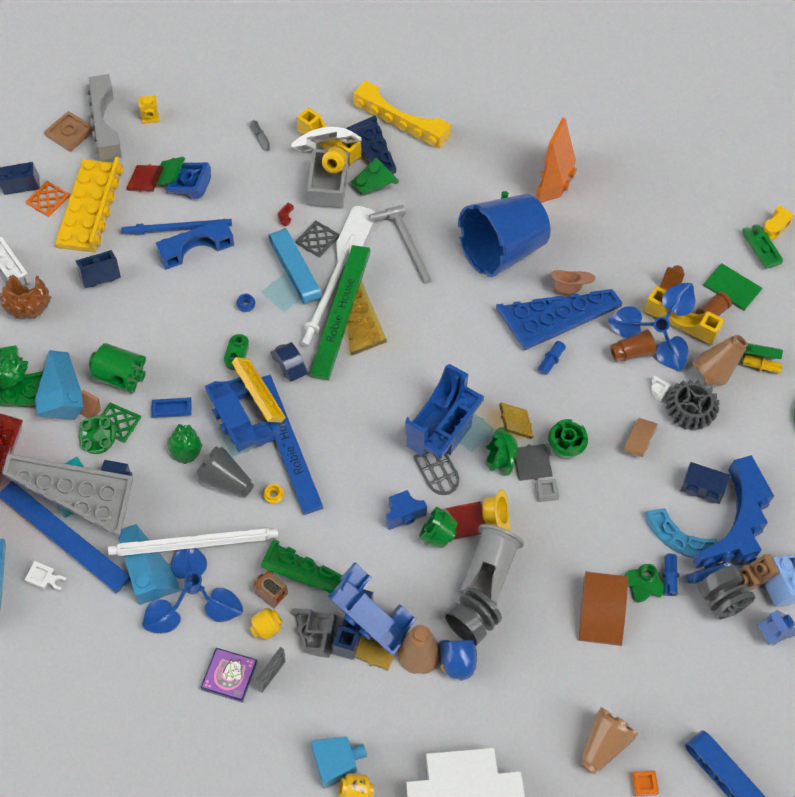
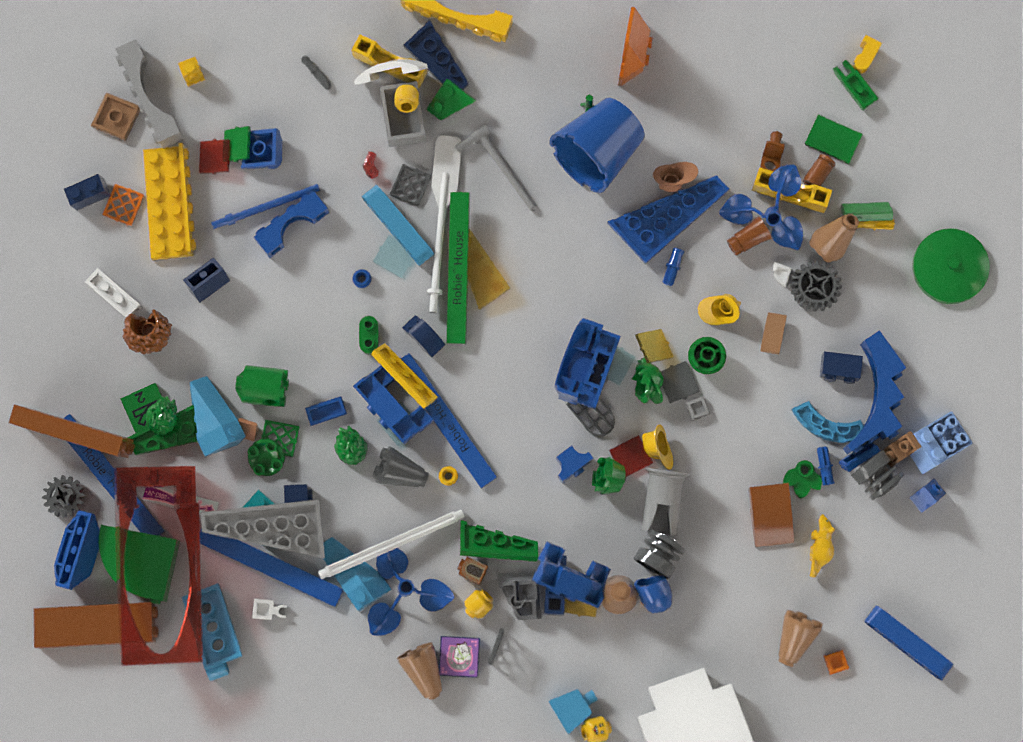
camera: 10 degrees left, 20 degrees up
(185, 675) = (422, 669): none -> medium nougat cone
(589, 402) = (719, 309): none -> yellow piece
(652, 654) = (822, 550): none -> yellow animal

